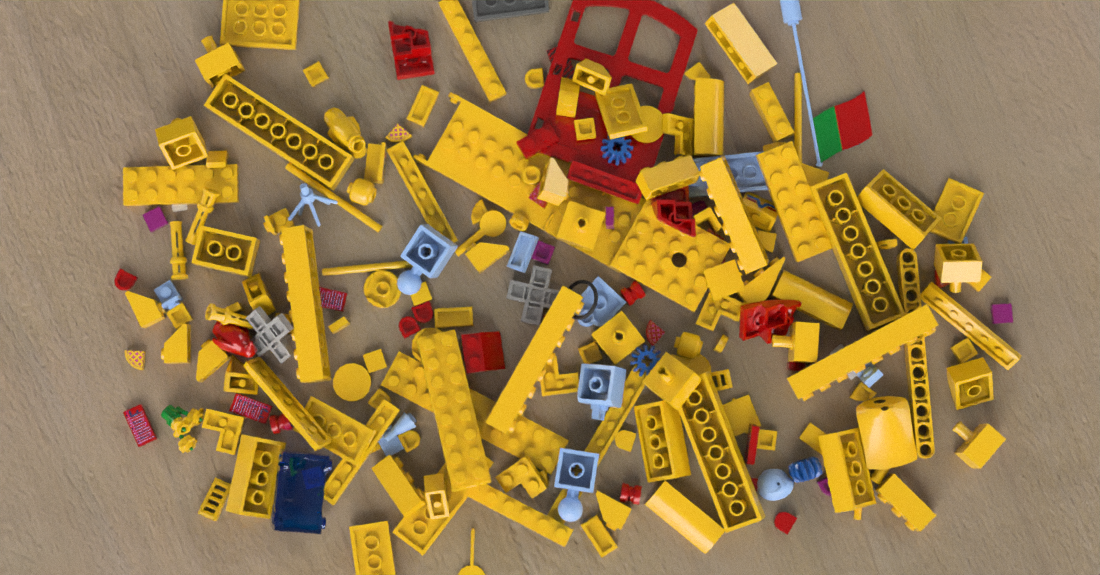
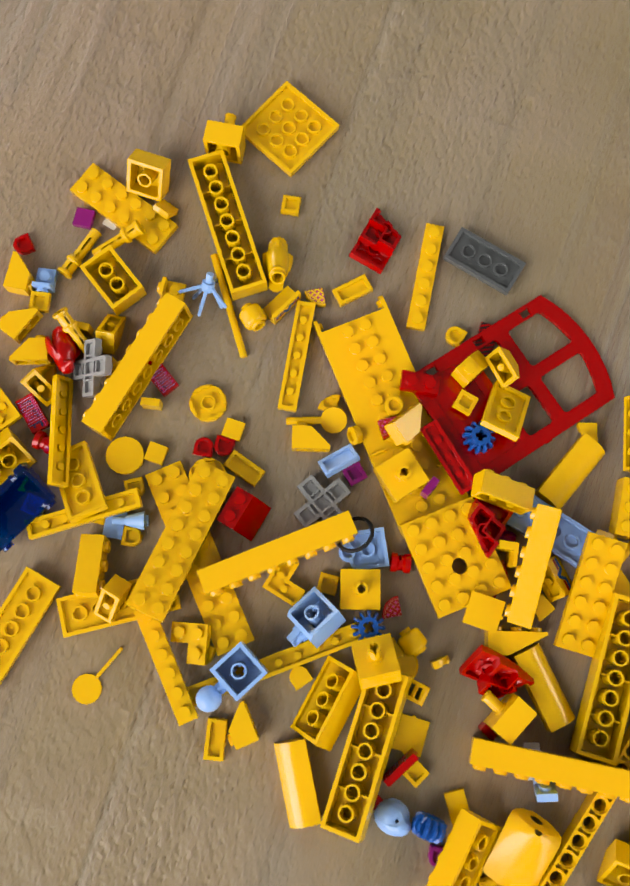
camera: 35 degrees right, 5 degrees down
(366, 268) = (218, 383): yellow piece -> none
(418, 255) = (263, 403): light blue brick -> none
(630, 493) = (268, 725): red wheel -> none
(654, 125) = (524, 443): yellow piece -> none
(682, 129) = (542, 465): yellow plate -> none
(712, 310) = (455, 628): yellow plate -> none
(784, 521) = (376, 856): red tile -> none
(862, 393) = (526, 799): yellow tile -> none

